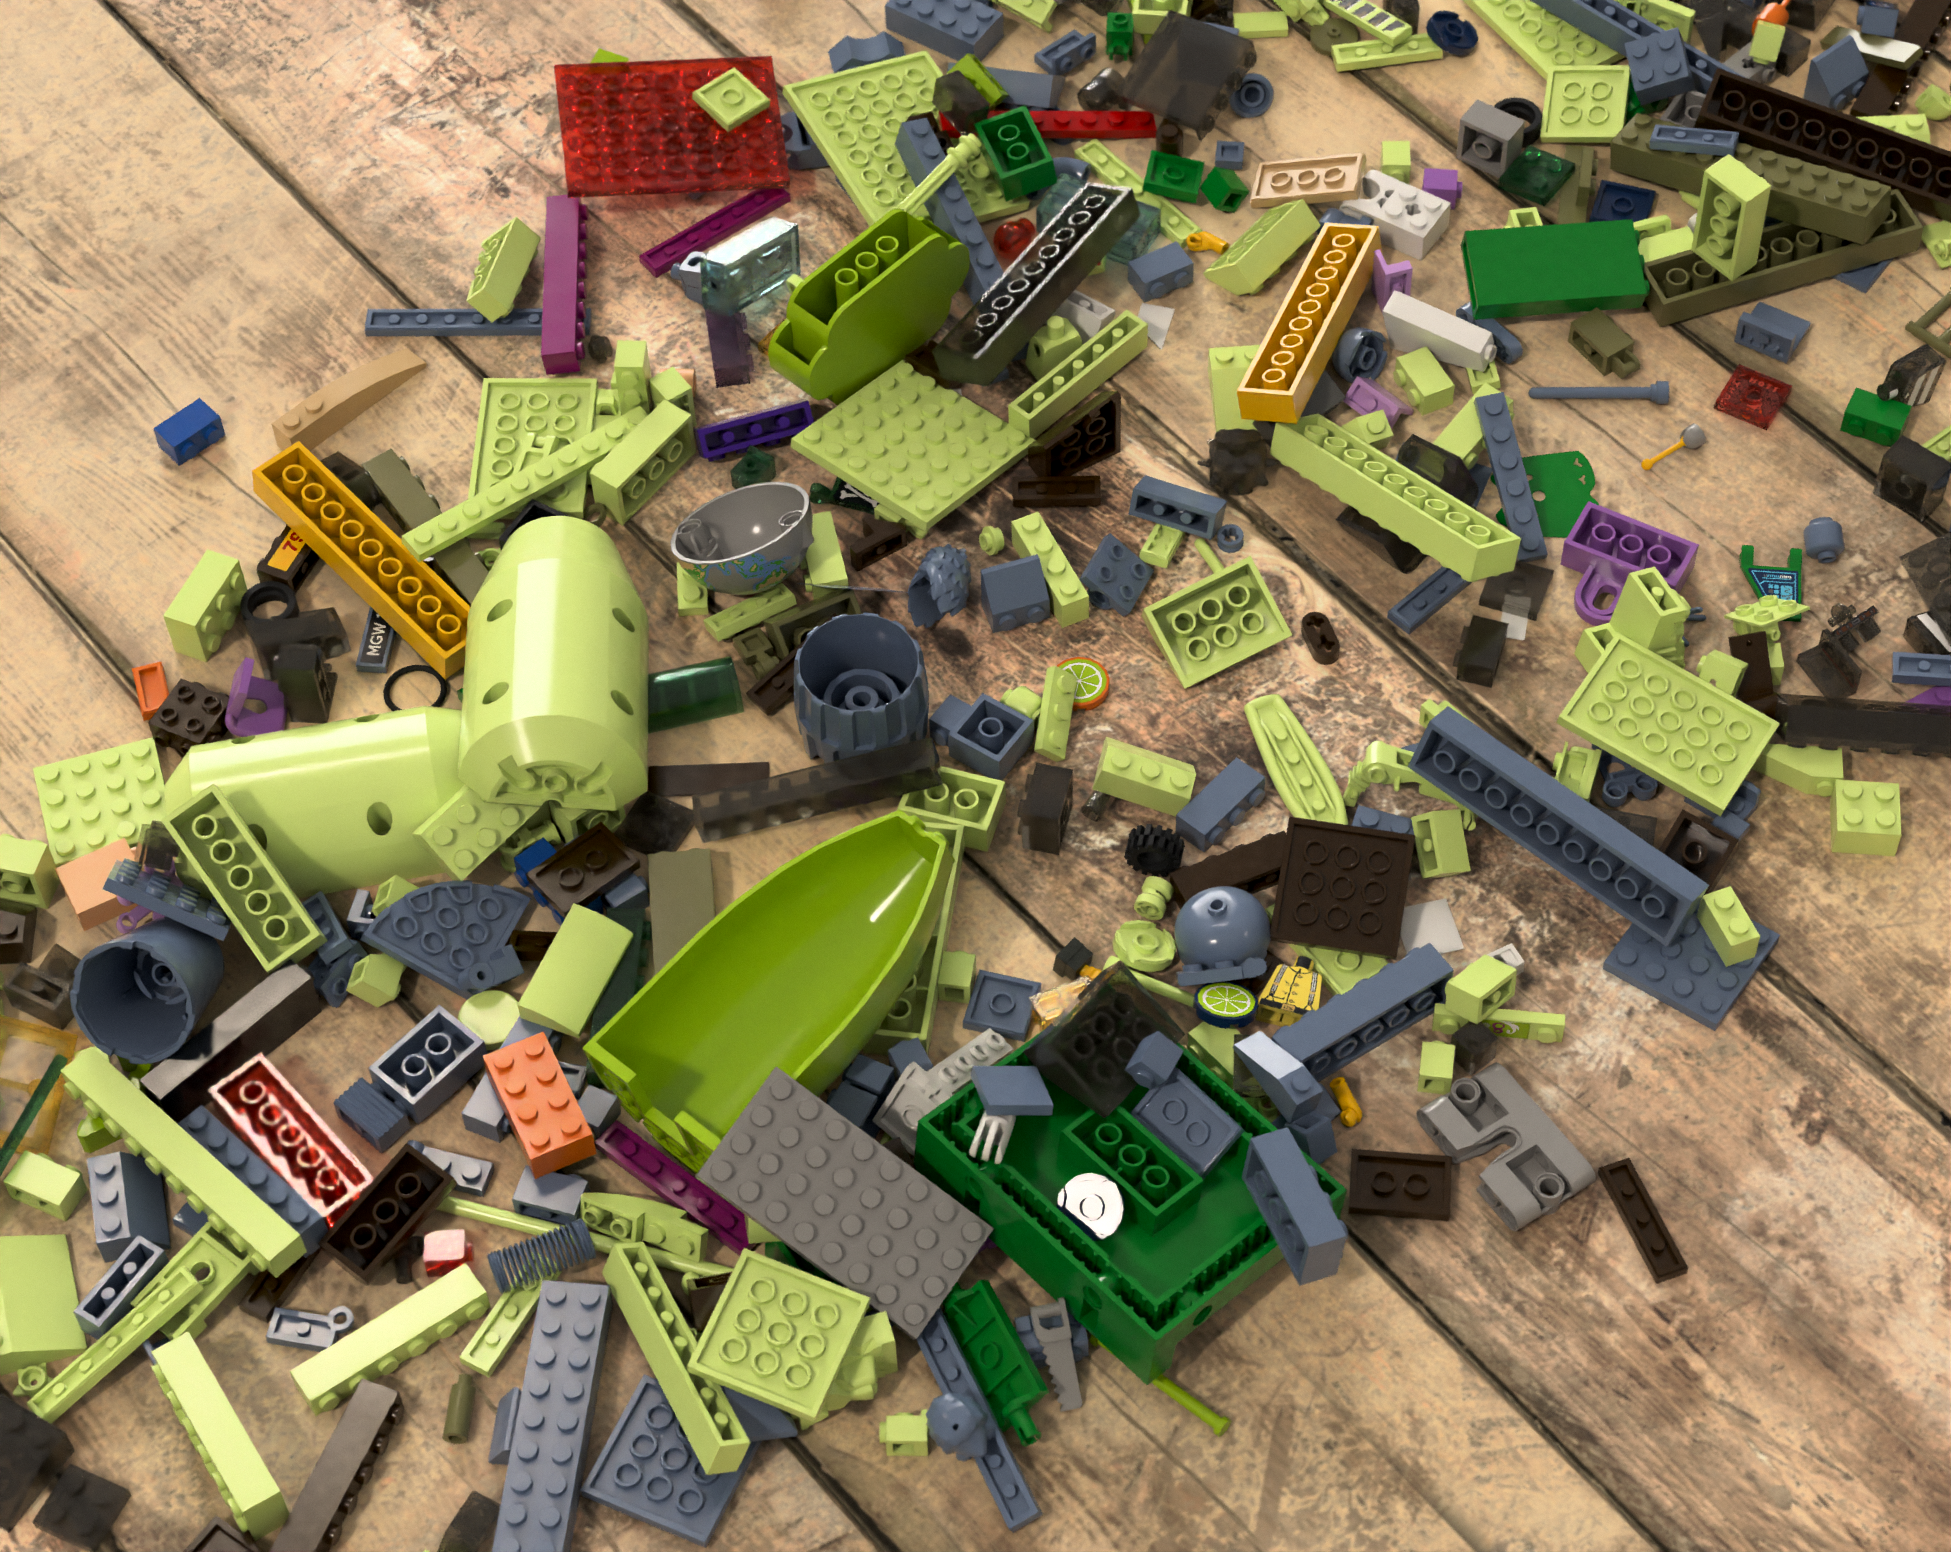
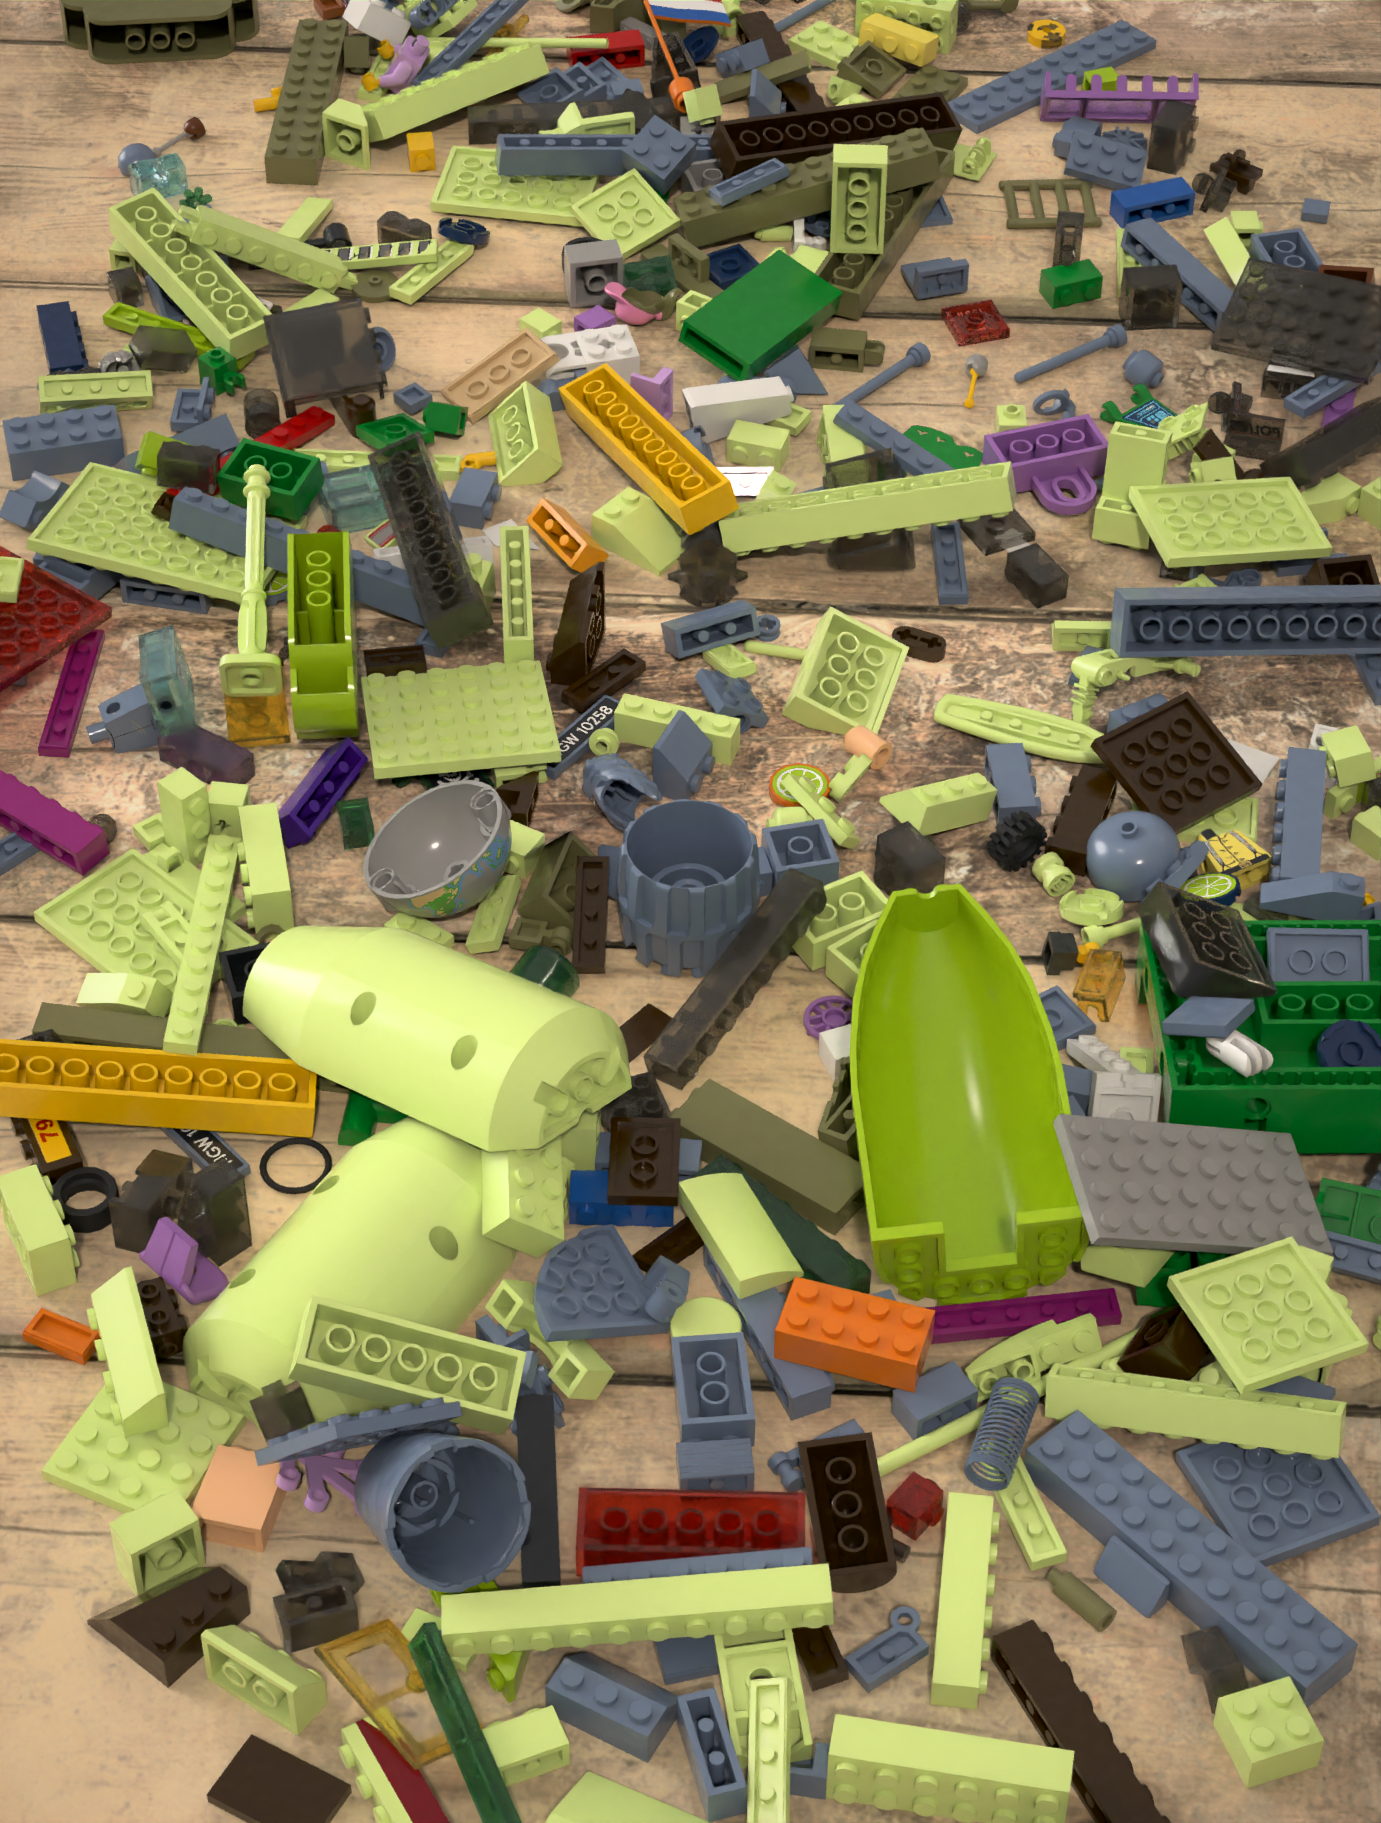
camera: 50 degrees left, 10 degrees down
(137, 736) = (128, 1355): none -> yellowish green slope
(452, 481) = (125, 993): none -> yellowish green slope
(970, 523) = (575, 738): none -> tile
(1130, 701) = (855, 769): none -> yellowish green plate
(1153, 1060) = (1258, 930): sand blue brick -> none
(1164, 691) = (862, 740): none -> light nougat brick
(1176, 354) = (566, 536): none -> light orange brick
(1440, 843) = (1185, 680): yellowish green brick -> none
(1492, 189) = (641, 306): none -> hair
(1541, 339) = (797, 368): none -> sand blue slope
(1645, 505) = (1010, 417): none -> yellowish green brick
(1712, 517) = (1061, 404): none -> sand blue piece
(1844, 491) = (1113, 337): none -> sand blue piece

